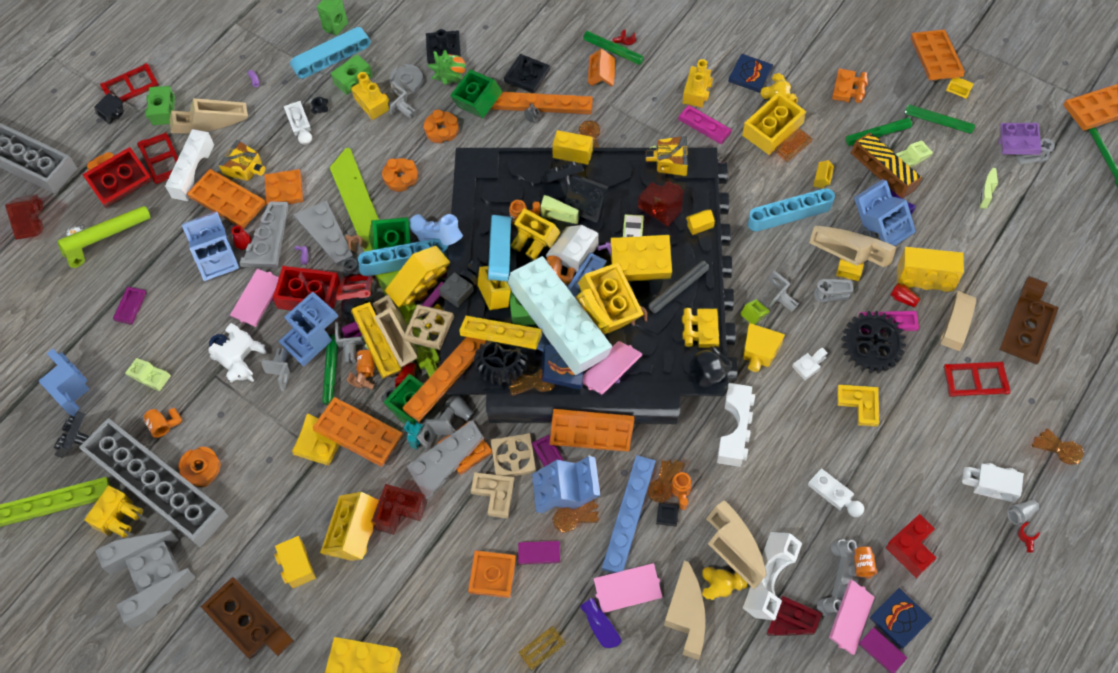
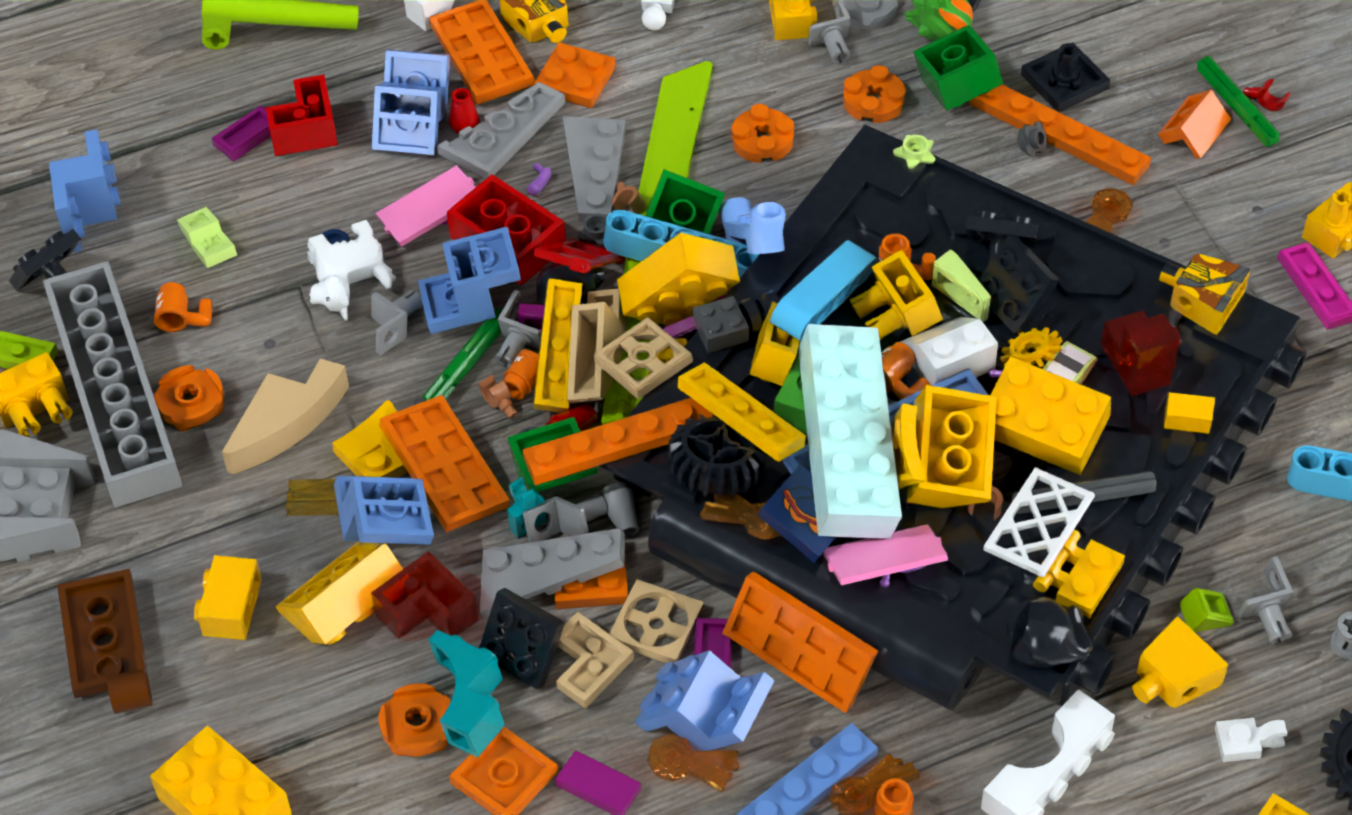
camera: 30 degrees right, 10 degrees down
(161, 283) = (303, 123): none -> red brick
(257, 450) = (284, 415): none -> tan slope
(290, 487) = (311, 490): none -> clear yellow tile
(347, 474) = (383, 510): none -> medium blue bracket
(434, 560) = (410, 739): none -> orange plate
(457, 497) = (537, 631): none -> black plate
(461, 553) = (473, 713): none -> teal arch
(489, 145) = (917, 143): none -> yellowish green plate
(572, 147) = (1049, 203): yellow brick -> none
(618, 223) = (1044, 343): none -> yellow gear
(671, 335) = (1018, 555): none -> white window

